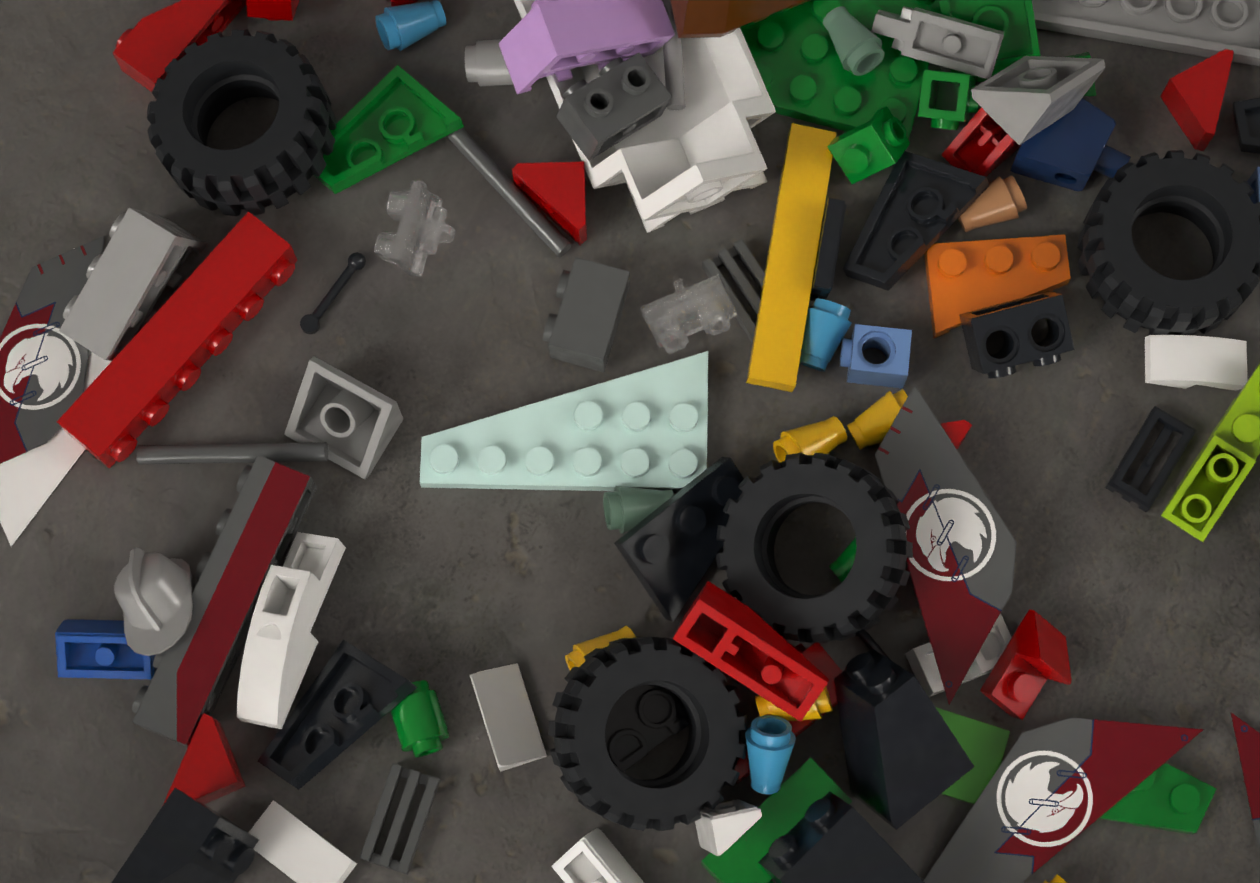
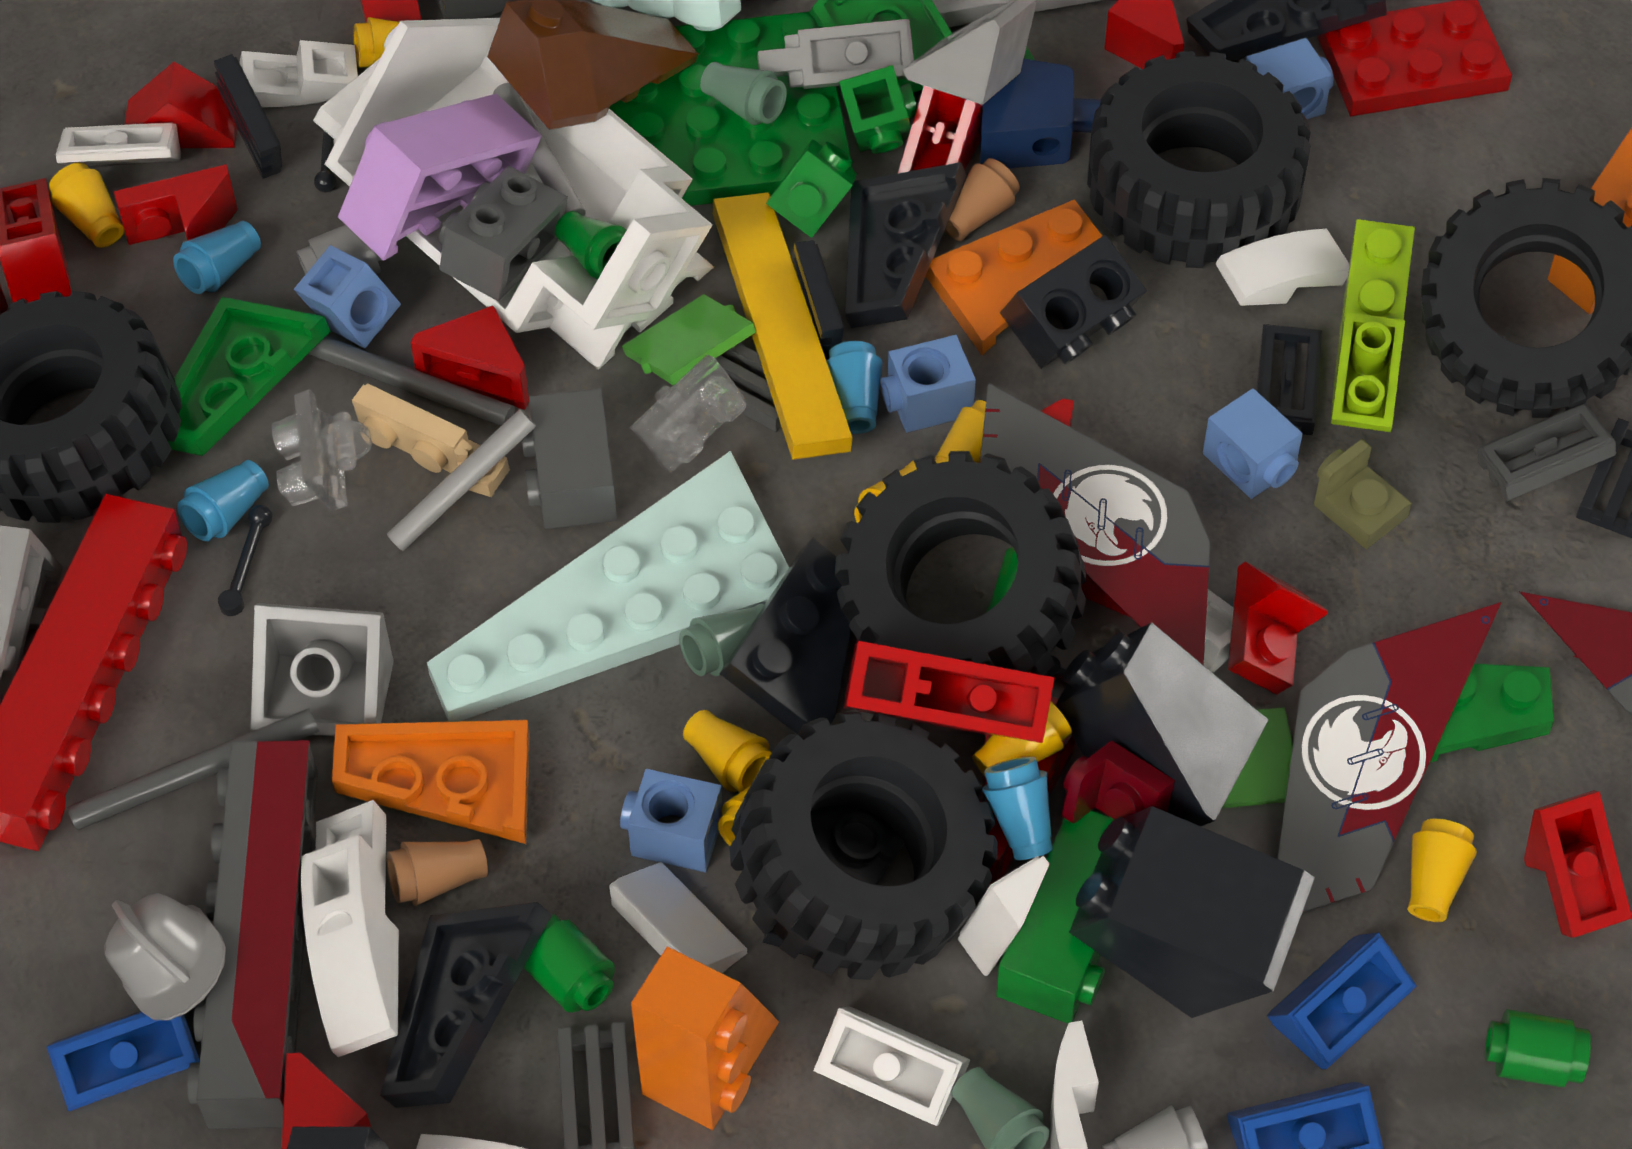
camera: 25 degrees left, 20 degrees down
(332, 240) = (220, 501): none -> dark azure cone
(361, 604) = (433, 868): none -> medium nougat cone
(397, 529) = (441, 771): none -> orange wing
(482, 821) = (697, 1037): none -> orange wedge
(484, 106) = (347, 296): none -> medium blue brick
(498, 258) = (426, 437): none -> tan hinge
(503, 301) = (461, 479): none -> light grey bar
(551, 654) = (680, 843): none -> medium blue brick
(599, 601) = (727, 749): none -> yellow cone
(678, 141) = (589, 240): none -> green cone
(719, 242) = (687, 337): none -> bright green piece
(847, 767) = (1114, 784): none -> dark red bracket
(1092, 510) = (1252, 444): none -> medium blue brick
(1151, 585) = (1358, 496): none -> olive bracket

